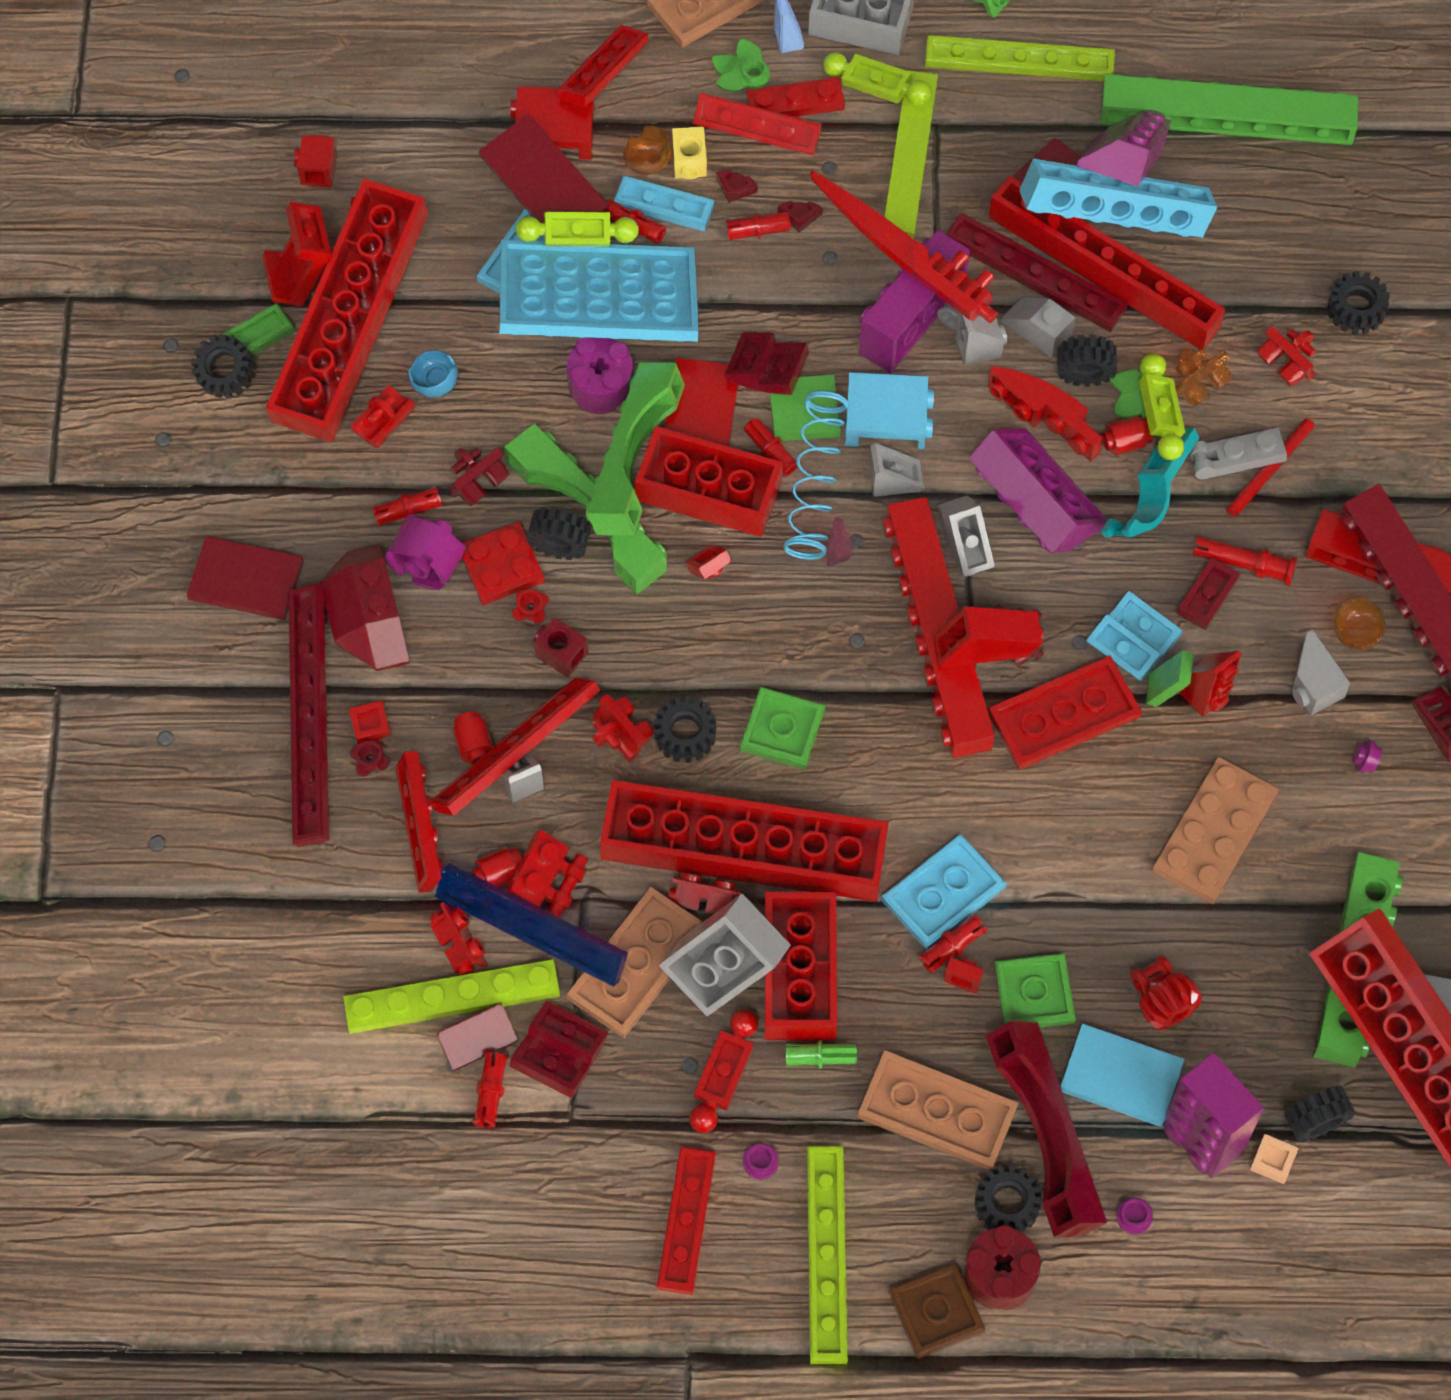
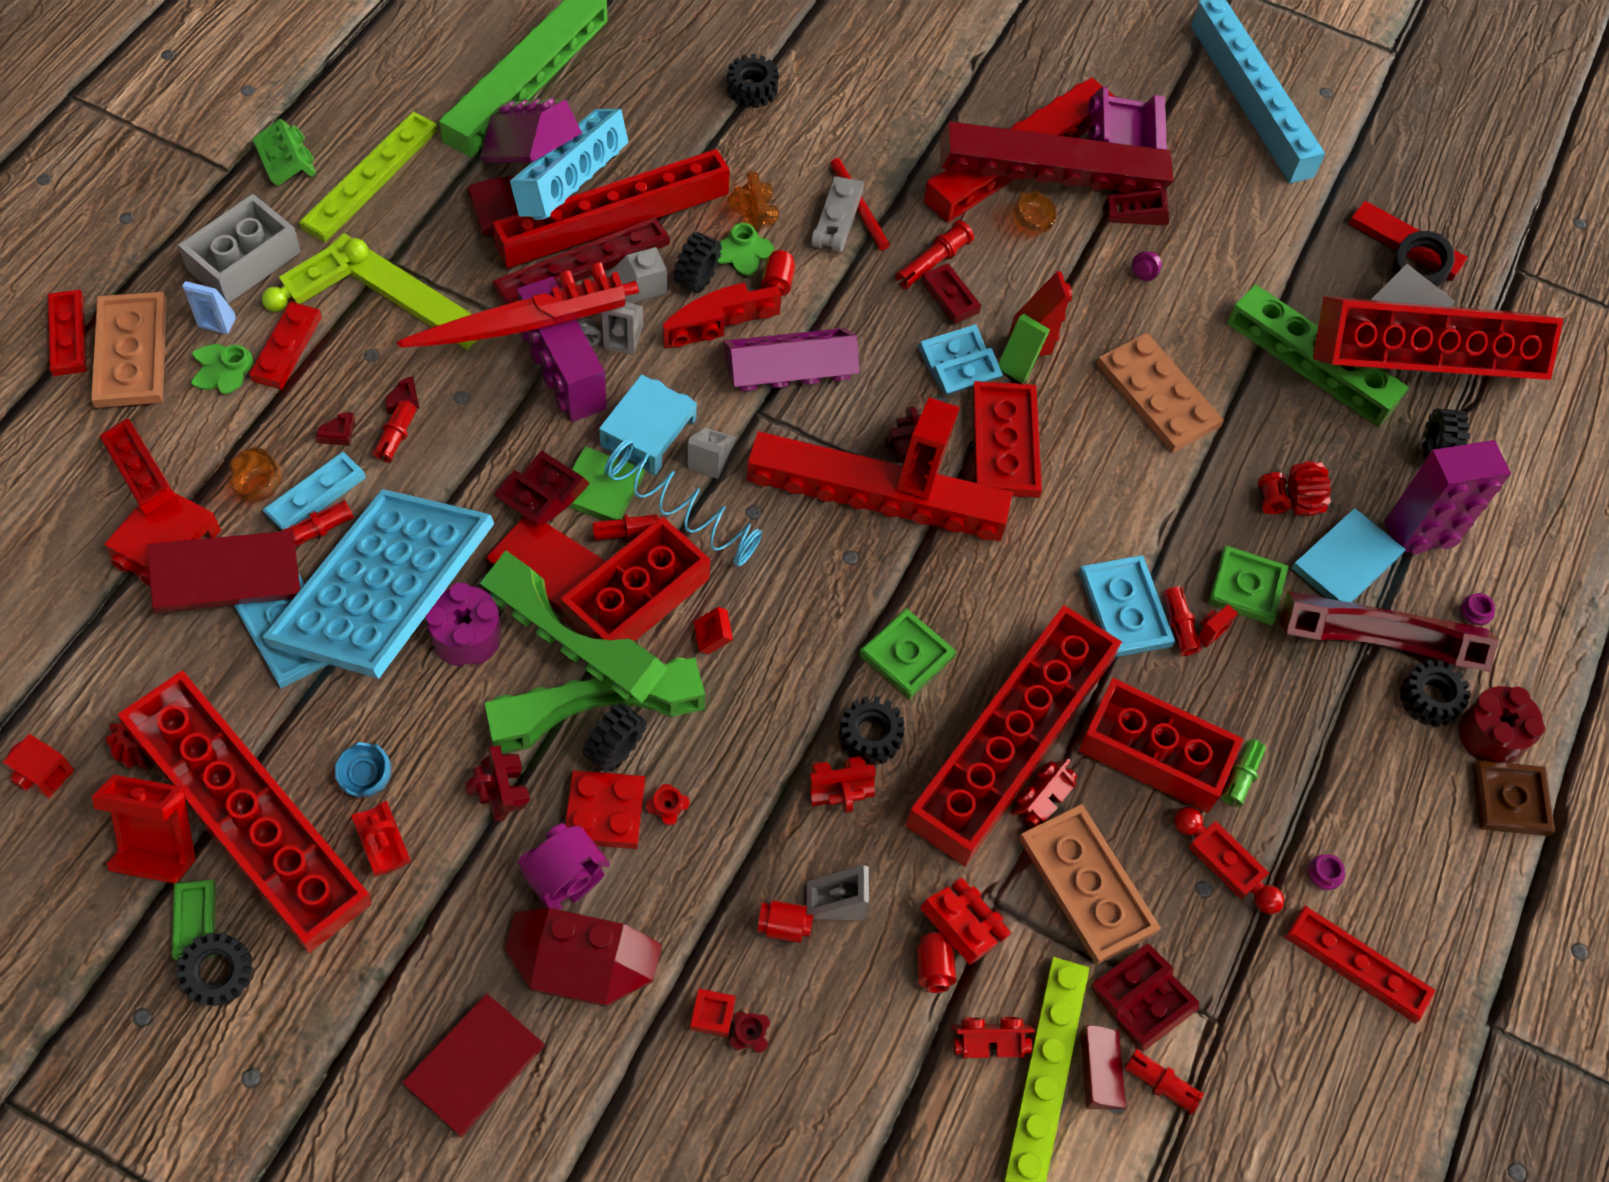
camera: 70 degrees left, 5 degrees down
(308, 716) = (673, 1070): dark red tile -> none
(406, 505) = (491, 866): red pin -> none
(417, 812) = (850, 1015): red plate -> none
(514, 746) = (822, 886): red tile -> none
(531, 924) = (1015, 958): clear blue tile -> none
(564, 659) = (734, 782): dark red brick -> none
(577, 229) = (301, 567): lime plate -> none
(686, 142) = (277, 434): light yellow brick -> none
(724, 955) = (1143, 793): light grey brick -> none
(757, 123) = (289, 382): red tile -> none
(827, 1255) = (1433, 860): lime tile -> none
(839, 544) = (756, 515): clear pink slope -> none
(938, 1110) = (1332, 707): nougat plate -> none
(966, 535) = (802, 421): light grey slope -> none
(1154, 491) = (836, 277): teal piece -> none
(1162, 406) = (766, 231): lime plate -> none
(1298, 365) = (771, 136): red hips -> none
(1317, 677) = (1063, 255): light grey slope -> none

